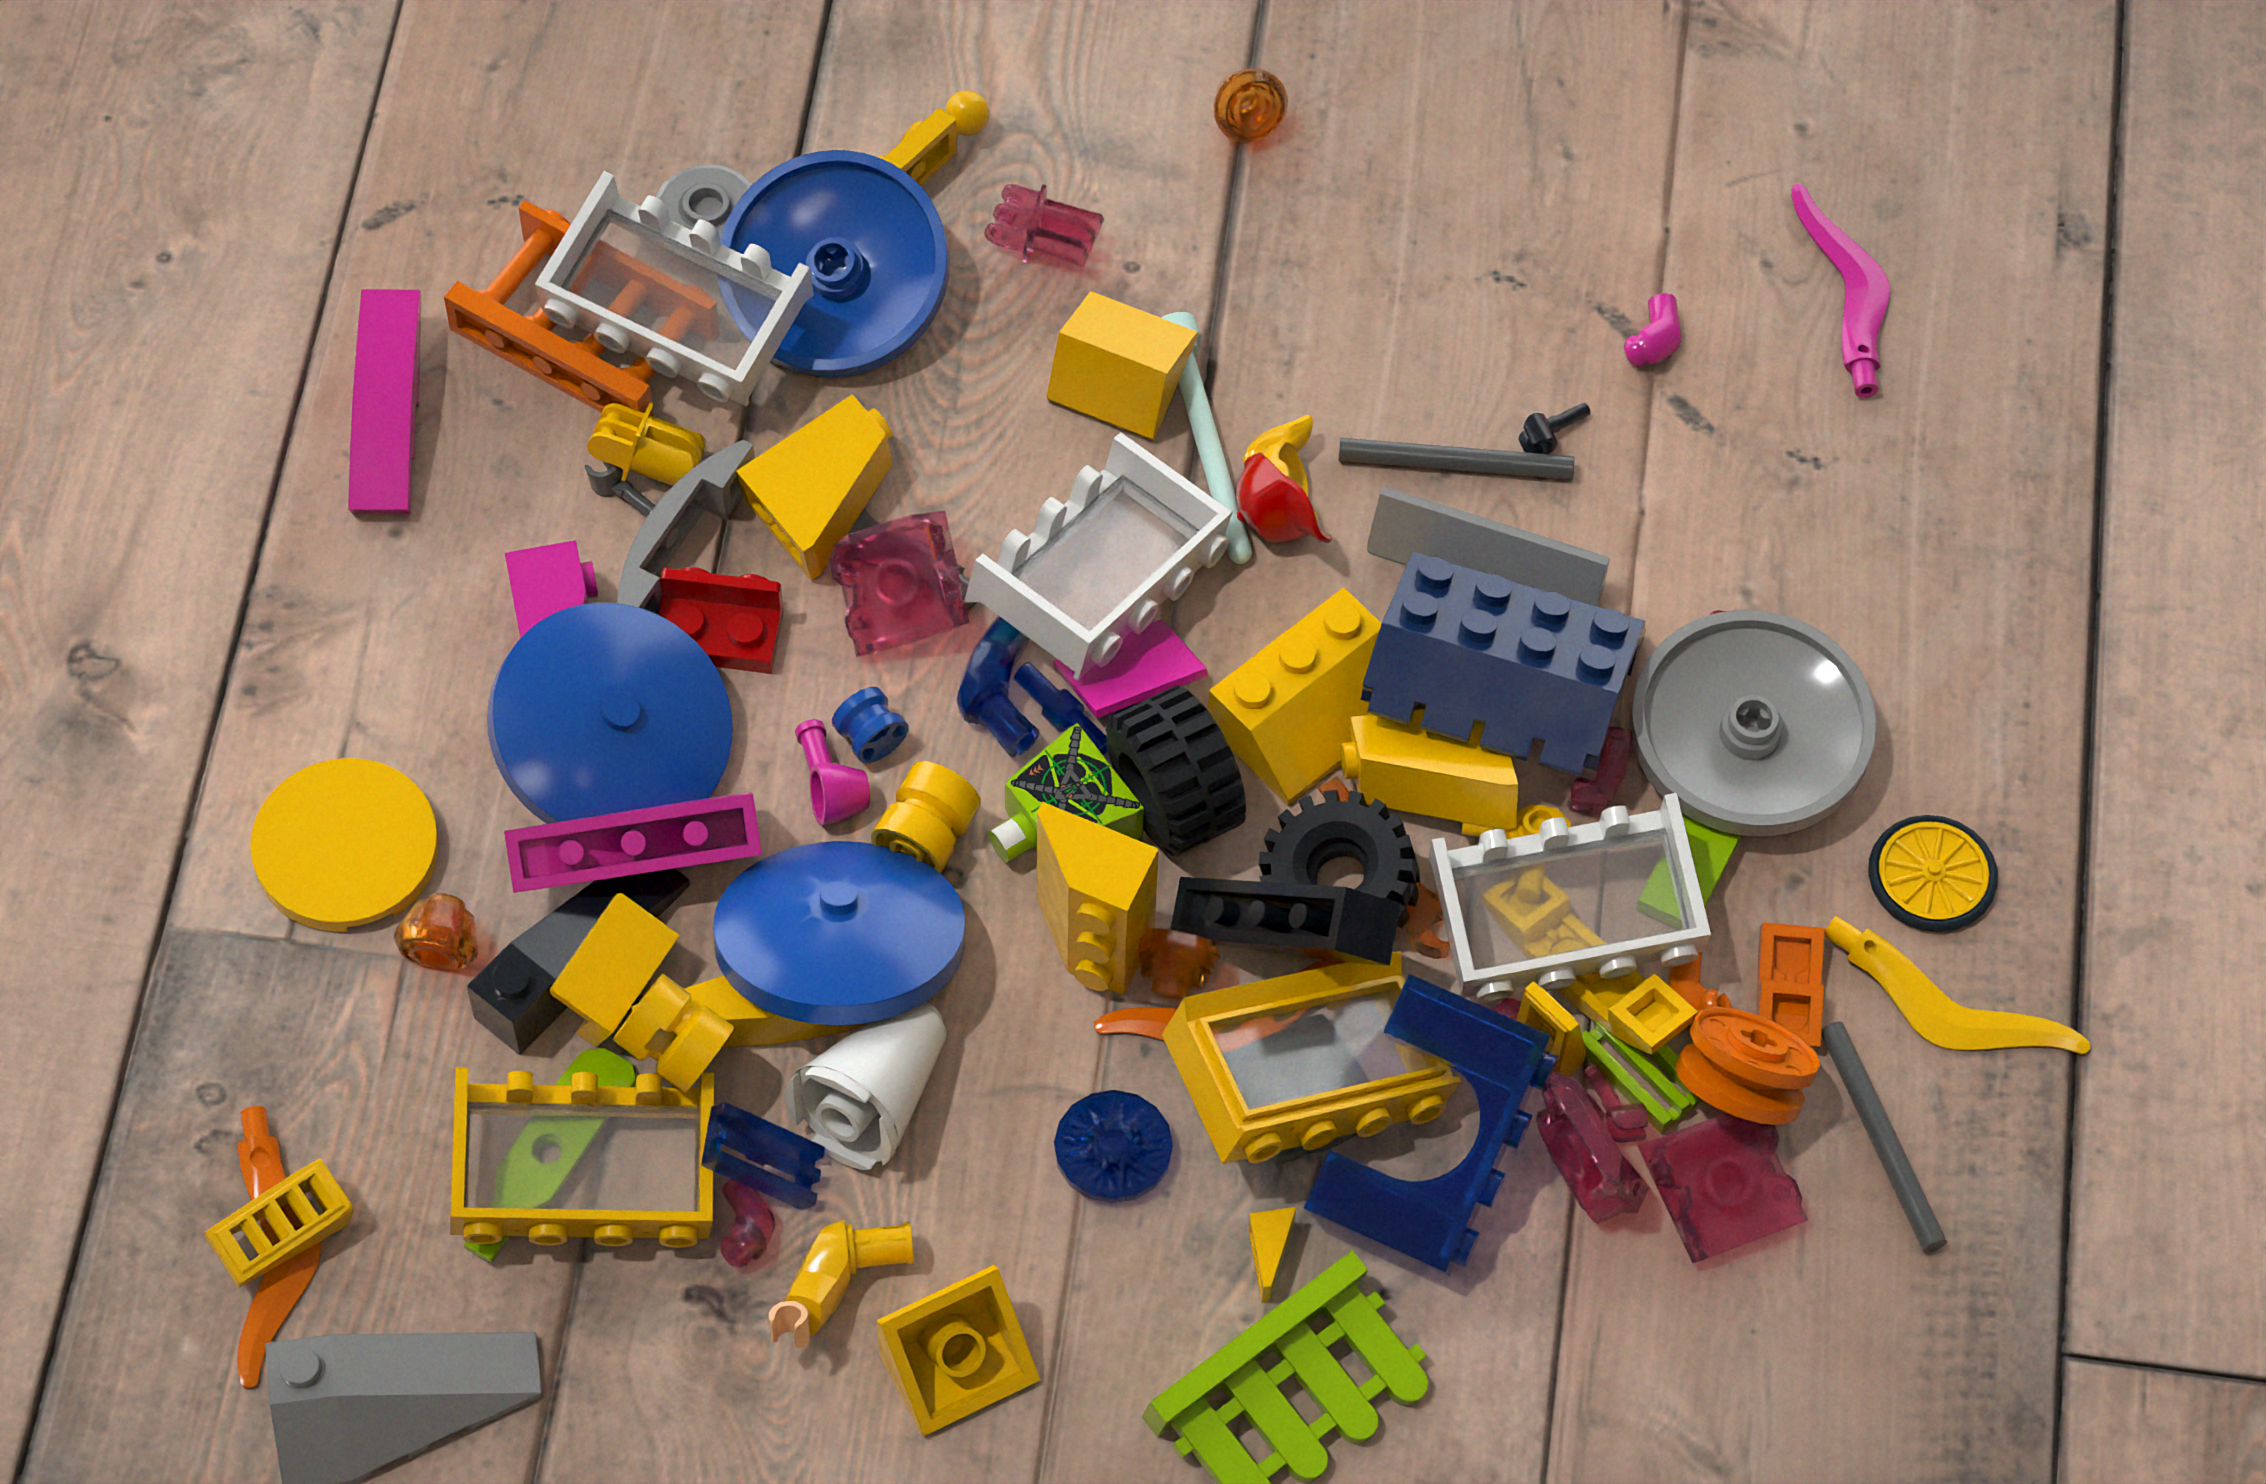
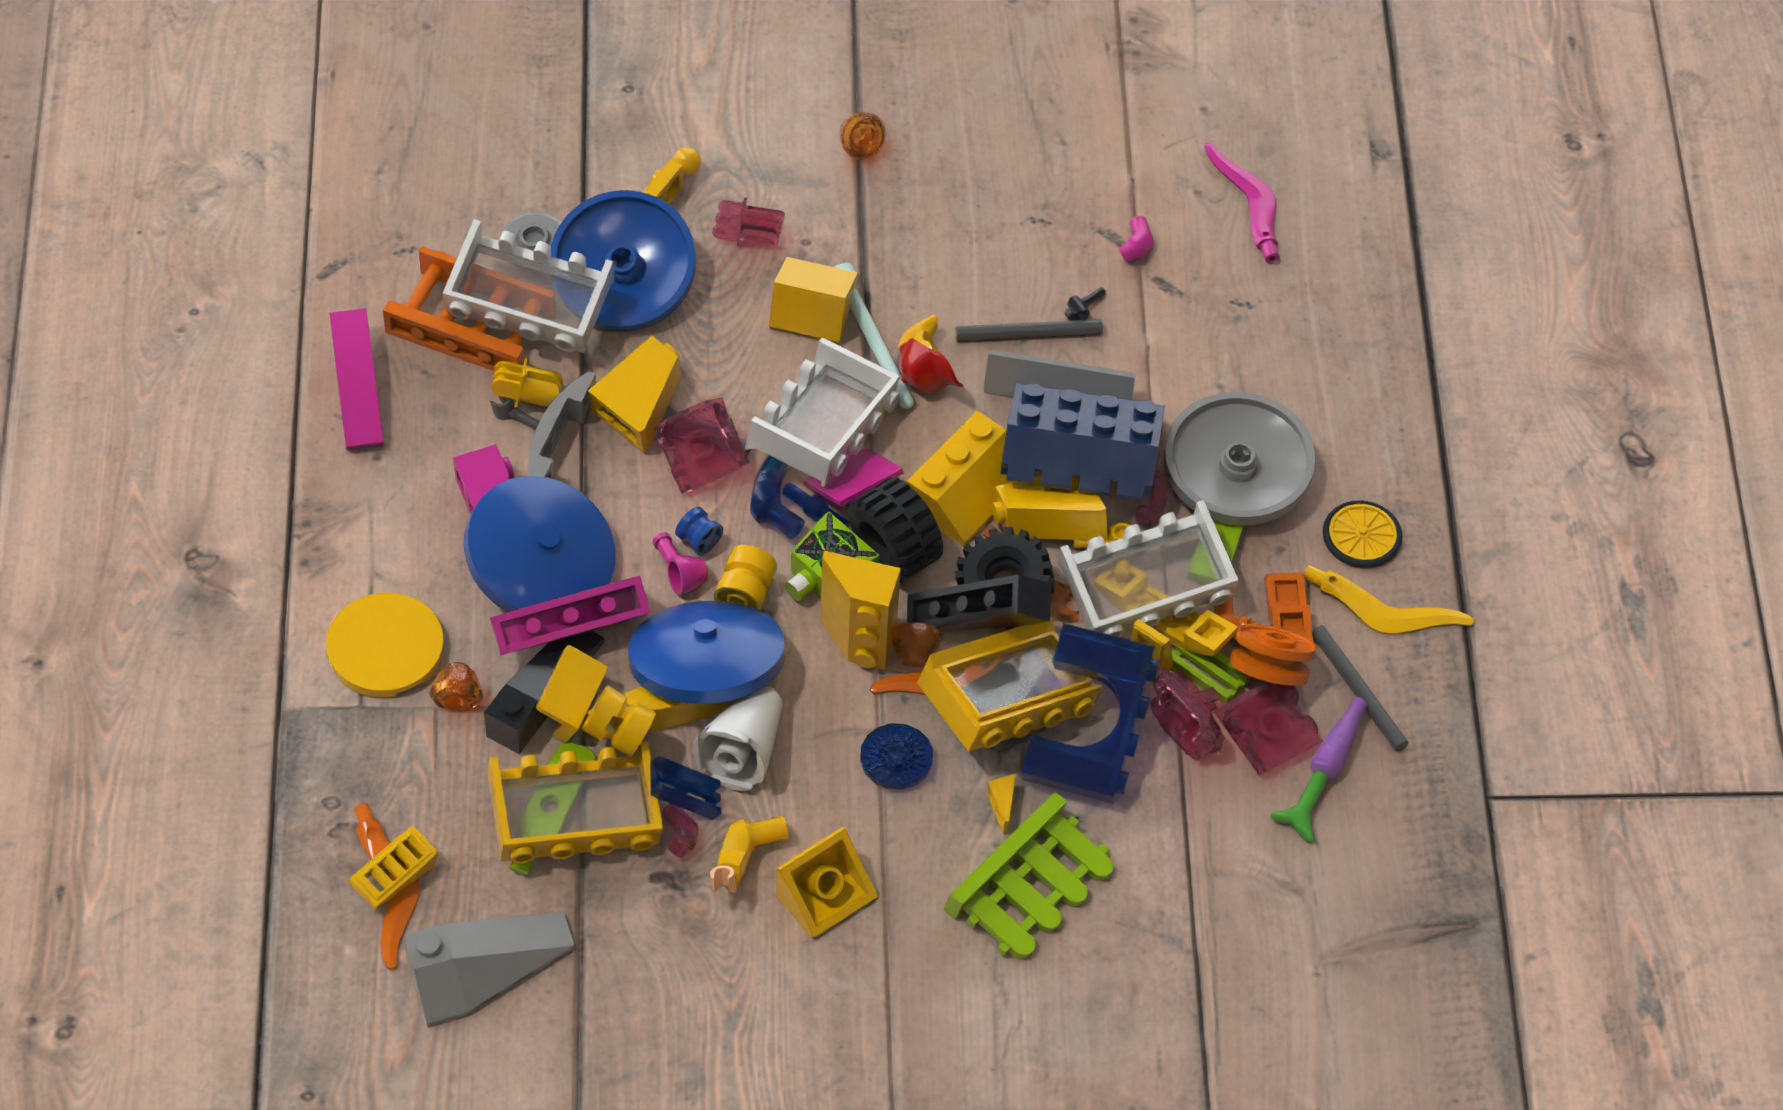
camera: 10 degrees left, 5 degrees down
(726, 615) = (598, 476): red bracket -> none
(1803, 1265) = (1325, 767): none -> piece

